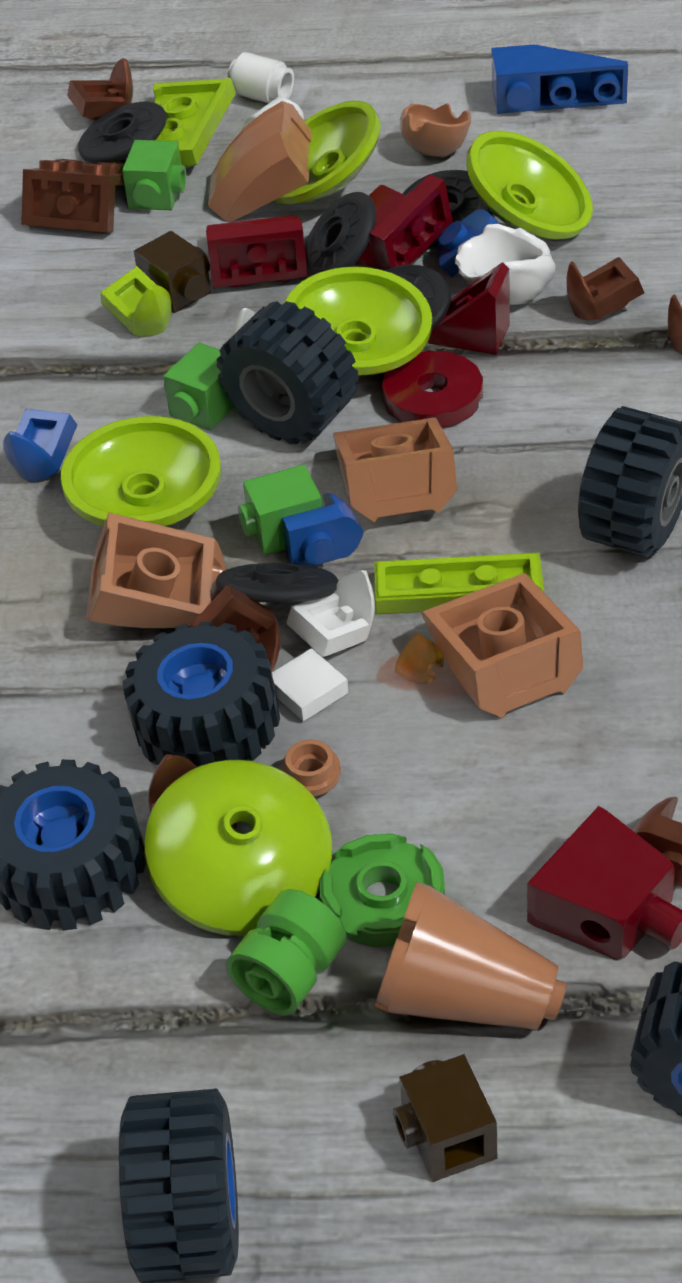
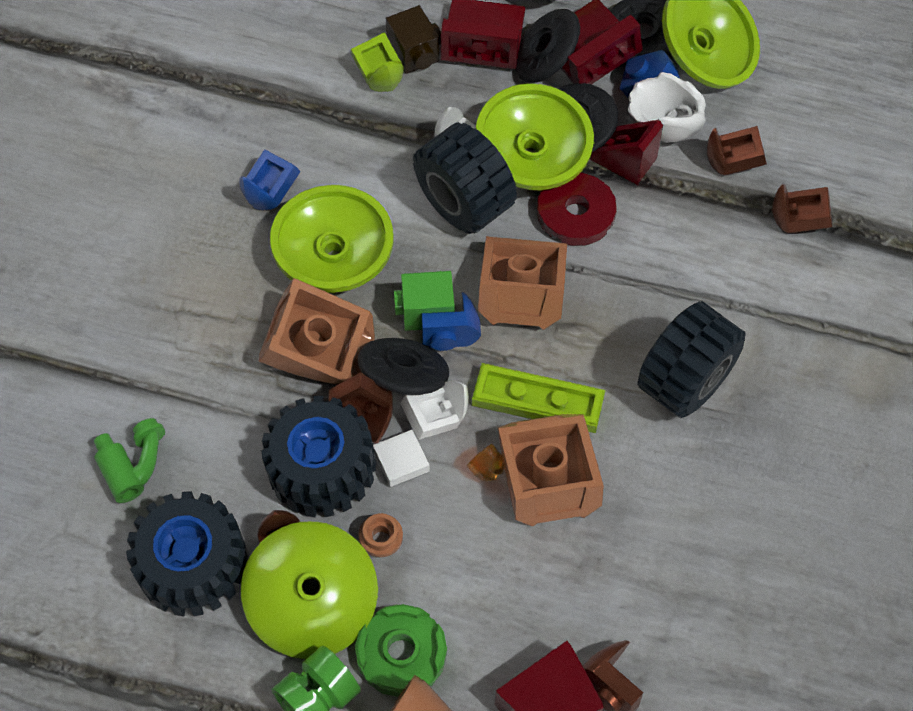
camera: 10 degrees right, 15 degrees up
(195, 389) = (395, 161): bright green brick -> none

